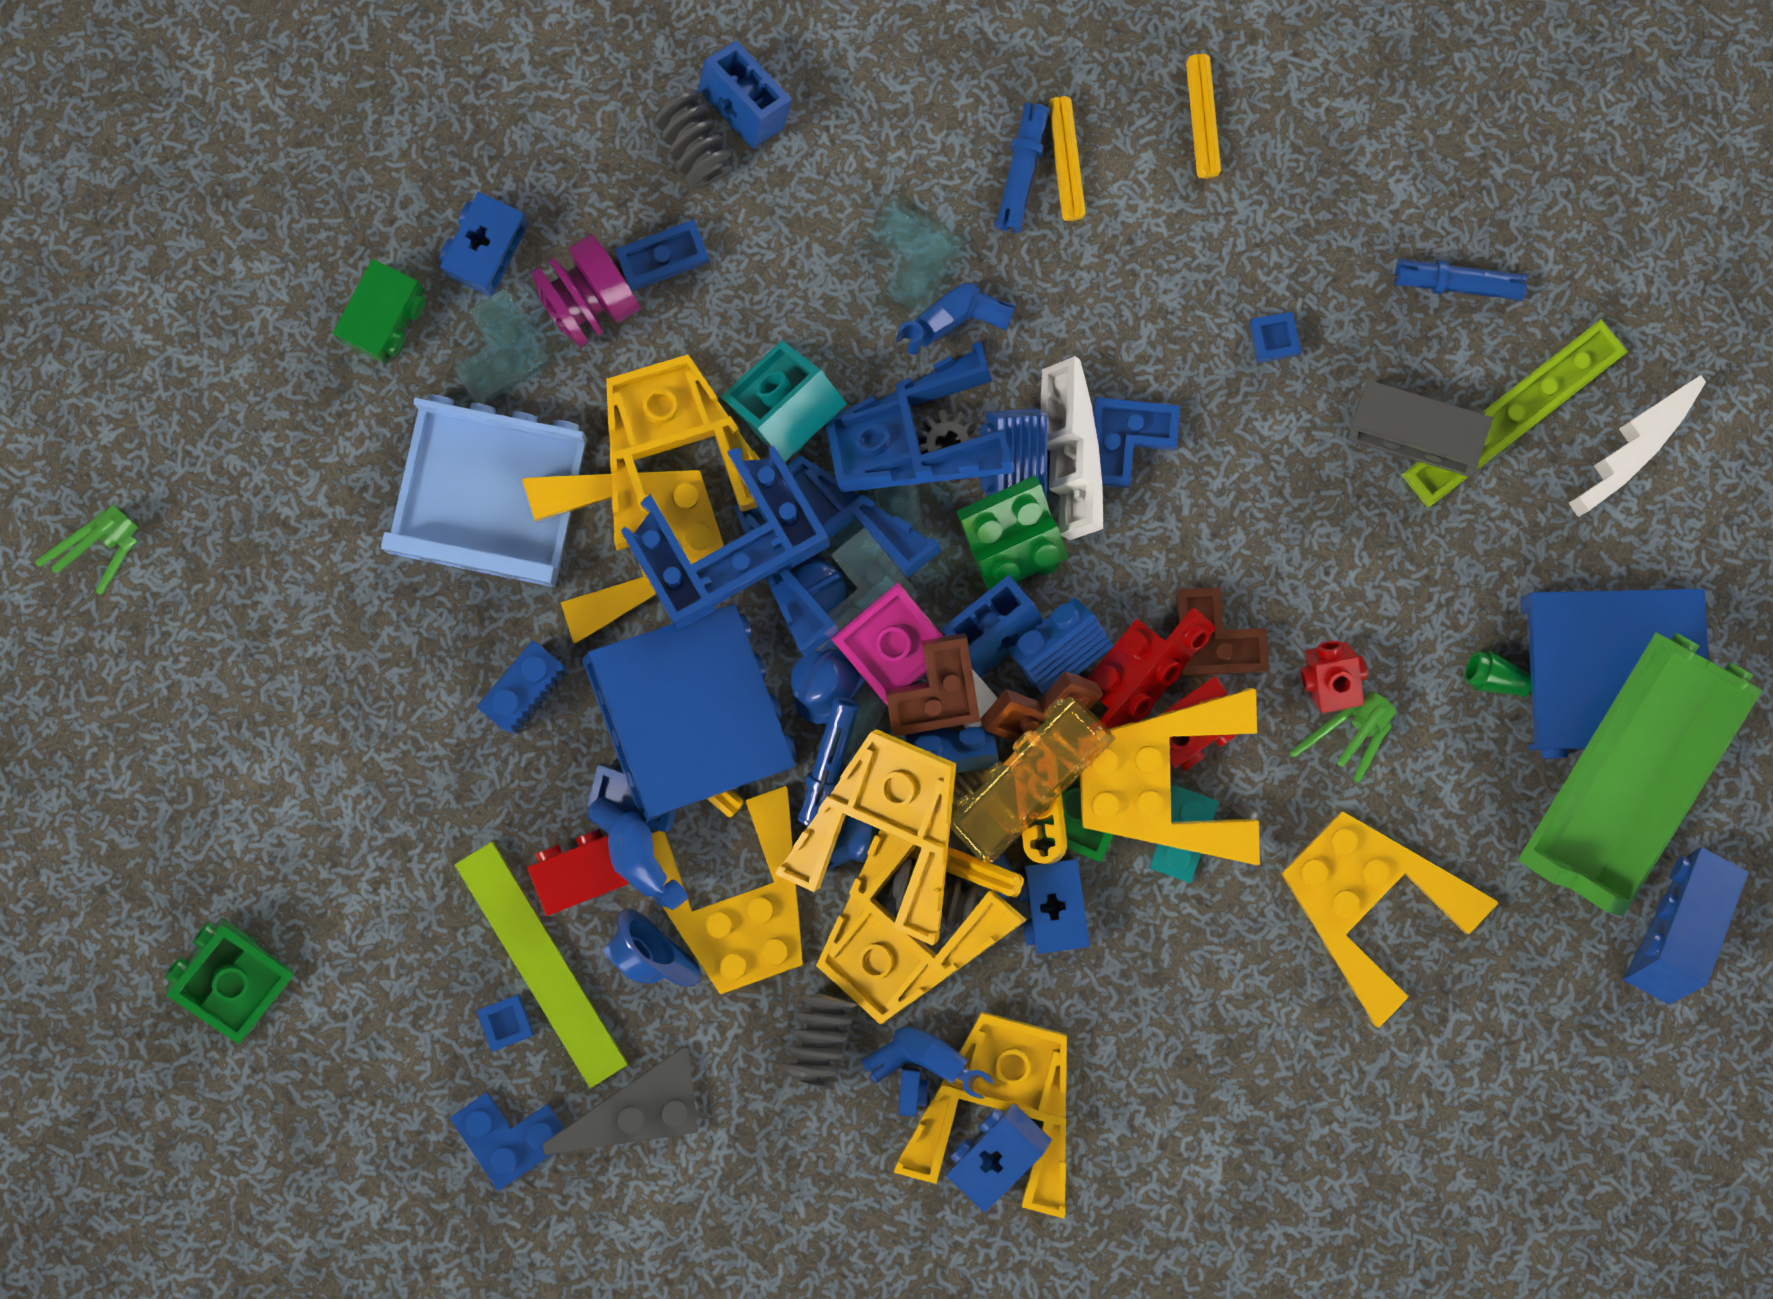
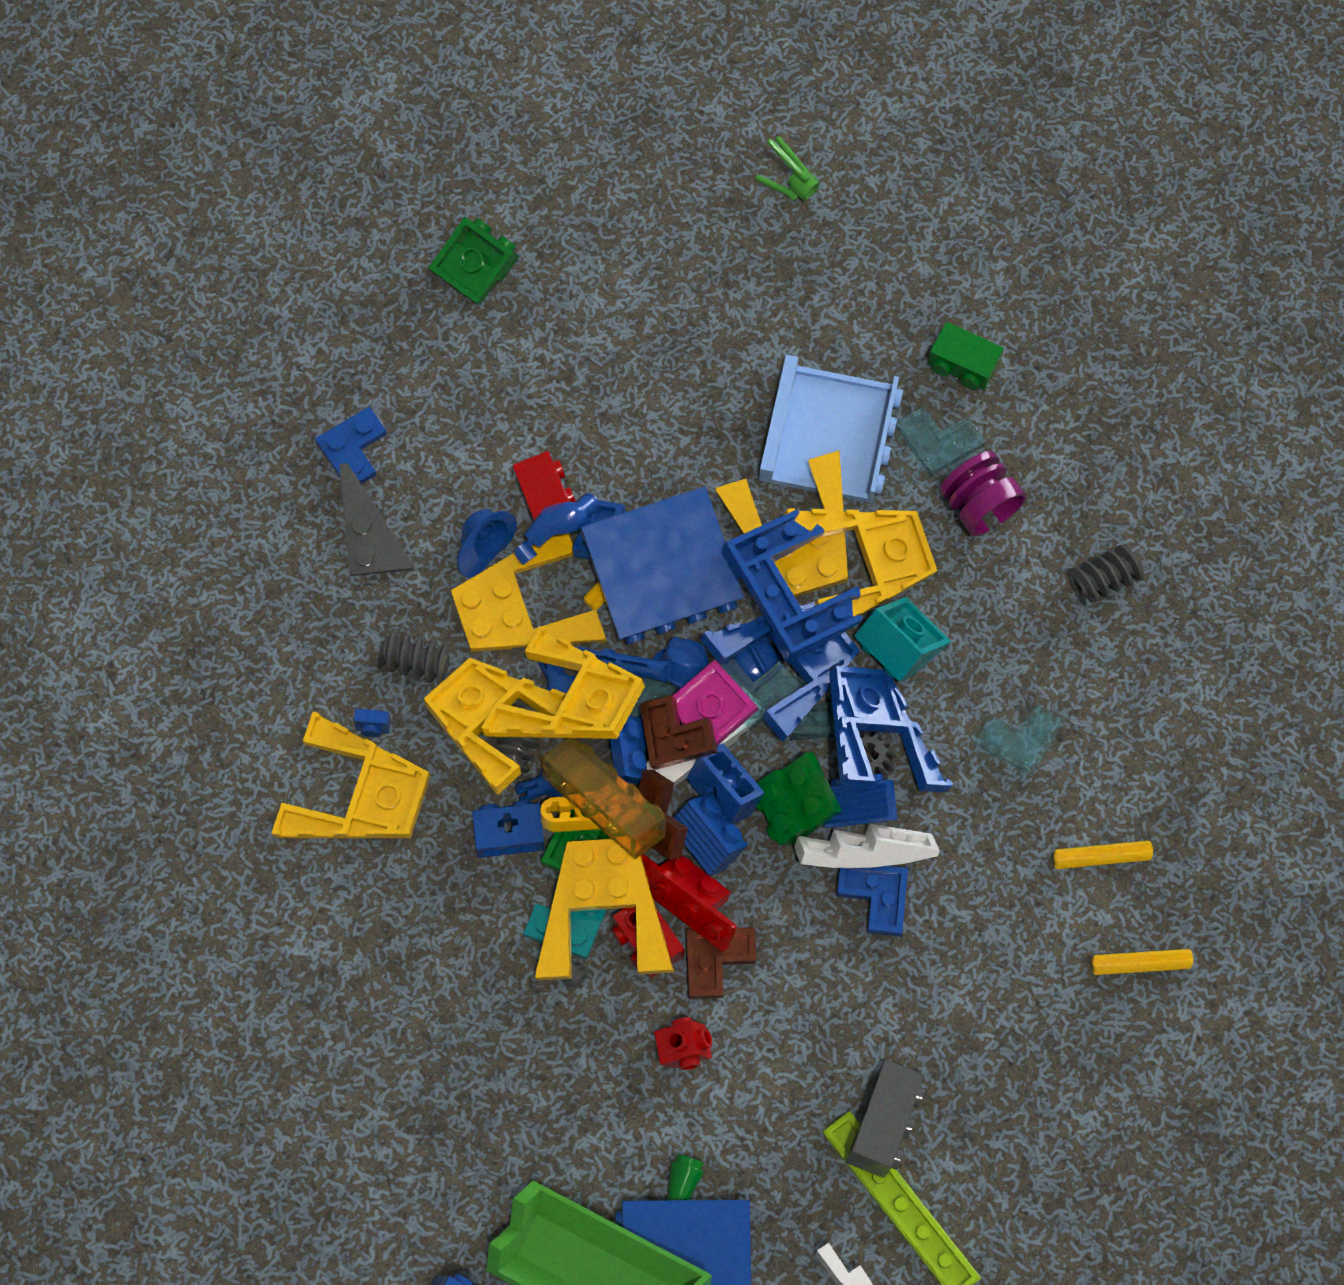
camera: 90 degrees right, 15 degrees down
(483, 266) = (1028, 440): blue brick -> none
(505, 1022) = (436, 443): blue plate -> none
(522, 688) = (682, 453): blue brick -> none
(541, 964) = (477, 469): lime tile -> none
(662, 255) = (1014, 554): blue plate -> none
(744, 94) = (1141, 609): blue brick -> none
(926, 1051) = (404, 729): blue arm -> none
(951, 312) = (972, 760): blue arm -> none
(980, 872) = (533, 770): yellow axle -> none
(986, 1177) = (321, 781): blue brick -> none
(1026, 151) = (1093, 819): blue pin -> none
(1274, 337) = (959, 1011): blue plate -> none
(1346, 875) = (525, 1055): yellow wing -> none
(1369, 719) = (651, 1076): bright green plant -> none
(1444, 277) = (1011, 1161): blue pin -> none

